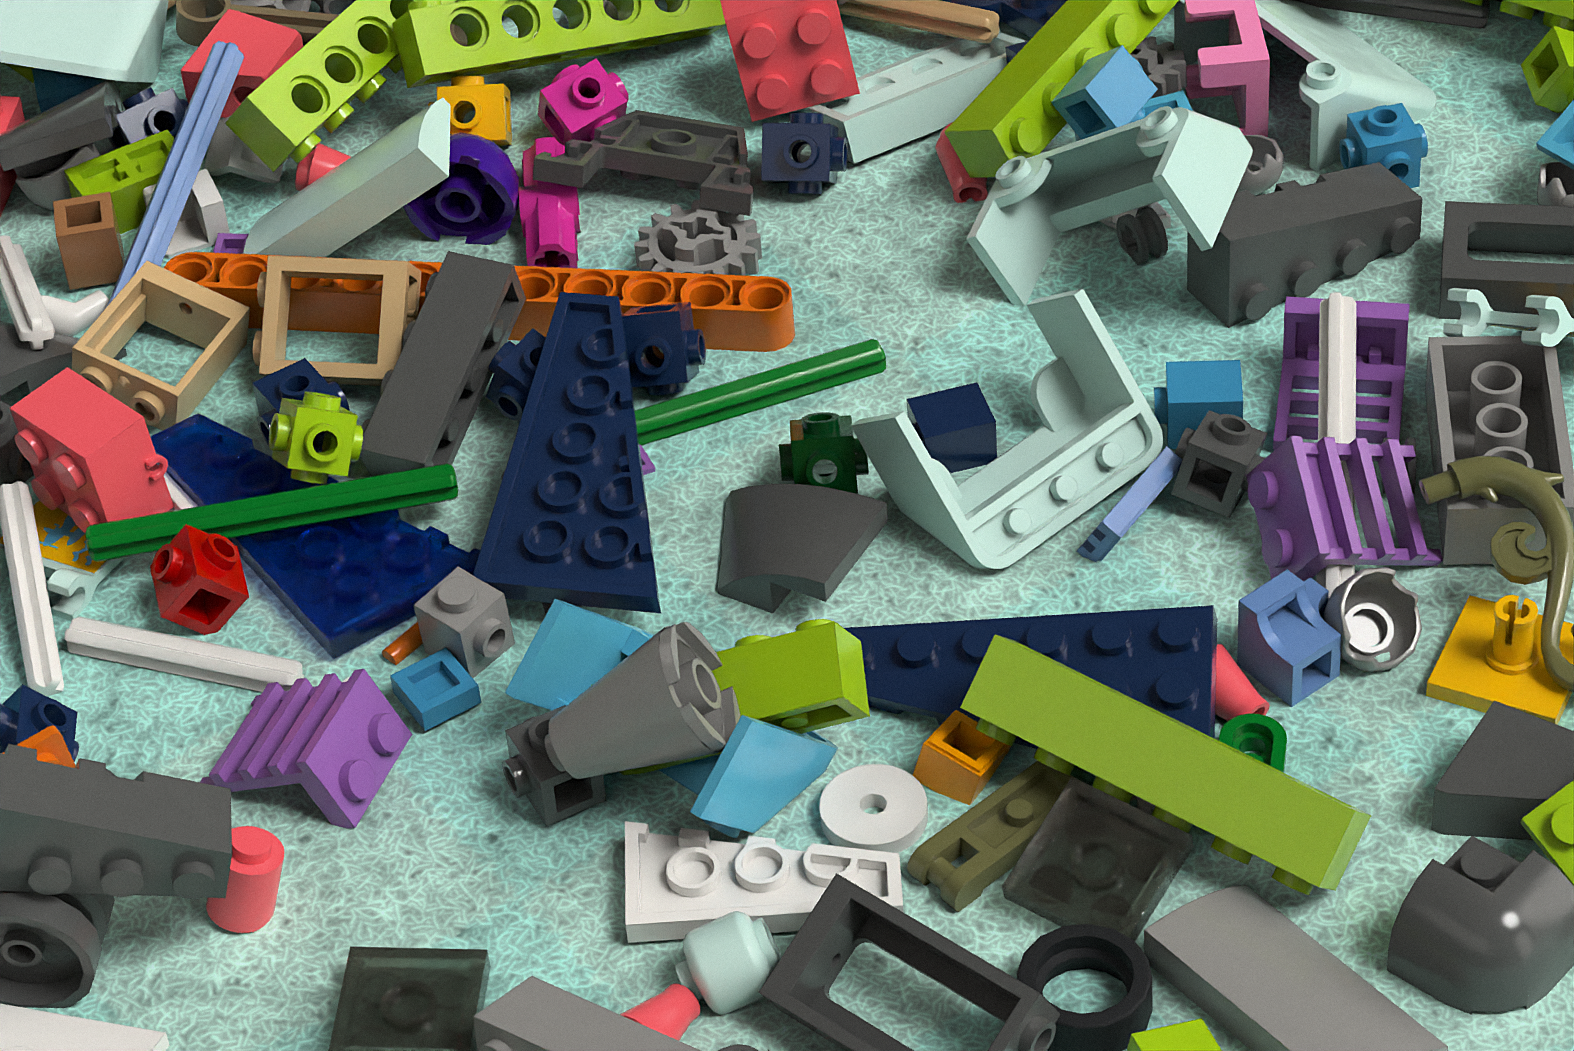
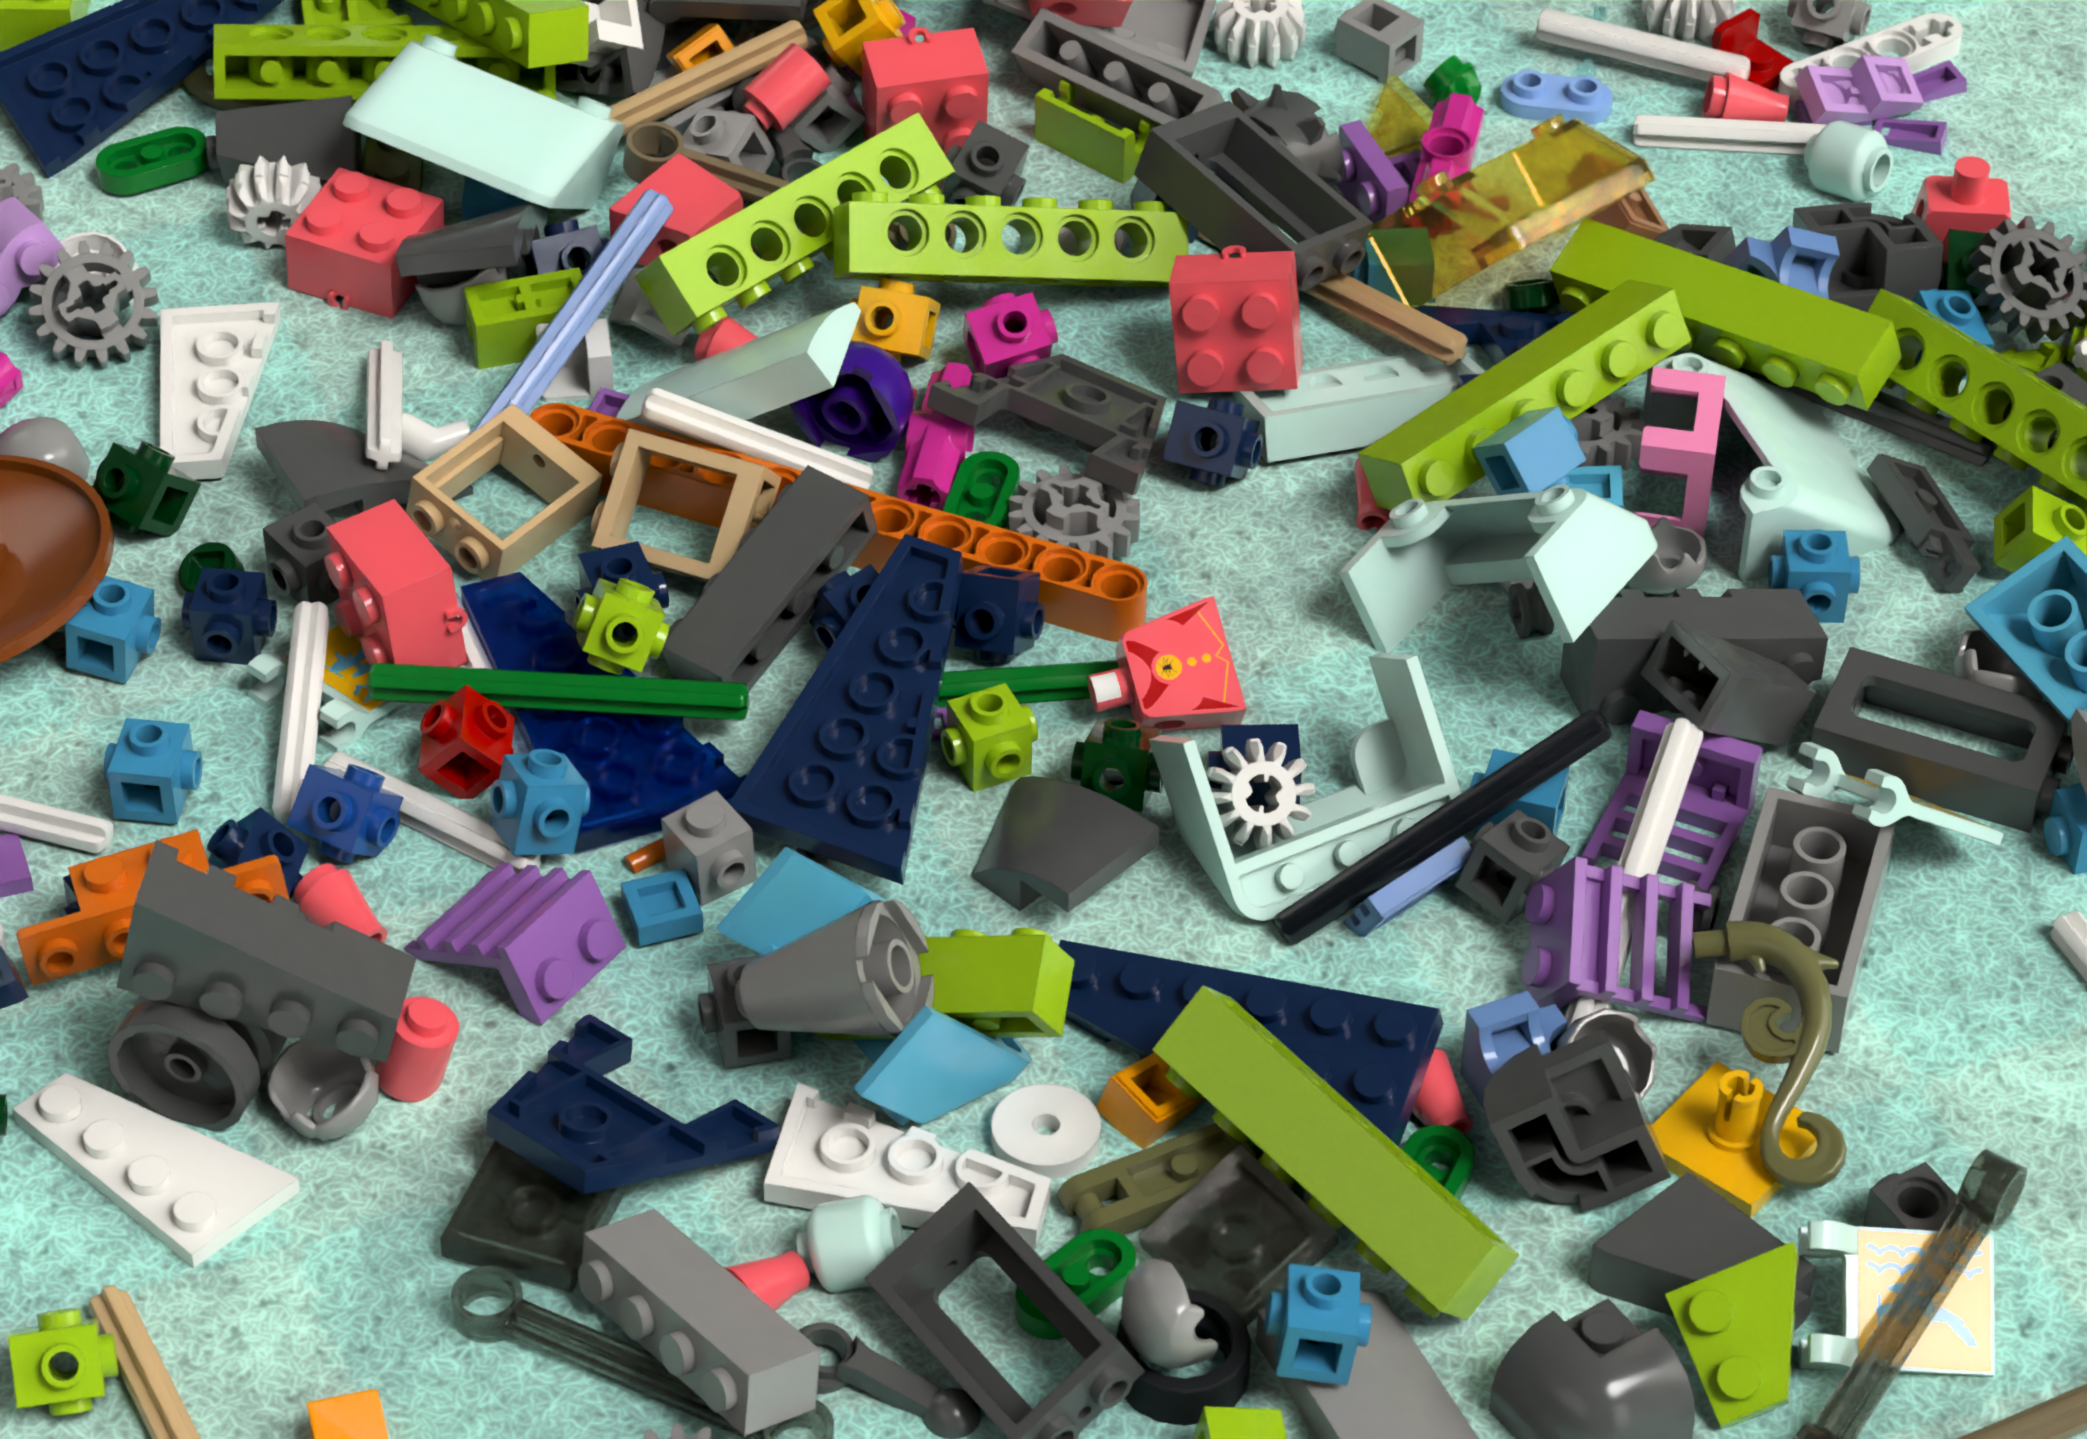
camera: 10 degrees right, 0 degrees up
(89, 240) = (467, 365): medium nougat brick -> none
(103, 671) = (346, 811): none -> blue brick
(120, 752) = (332, 896): none -> coral cone
(159, 928) = (322, 1076): none -> light grey hair
(289, 618) = (539, 803): none -> dark azure brick
(366, 243) = (747, 438): none -> white axle
(457, 916) = (602, 1134): none -> dark blue wing
(606, 240) = (973, 490): none -> green plate
(692, 460) = (989, 737): none -> lime brick
(845, 362) = (1174, 673): none -> coral torso
(956, 913) = (1073, 1266): none -> green plate
(986, 453) = (1280, 797): none -> white gear
(1066, 956) = (1161, 1318): none -> light grey hair
(1145, 443) = (1442, 827): none -> black axle
(1215, 927) = (1318, 1309): none -> dark azure brick
(1352, 258) = (1727, 686): none -> dark grey slope
(1373, 682) = (1574, 1124): none -> dark grey brick
(1462, 82) = (1928, 520): none -> dark grey hinge

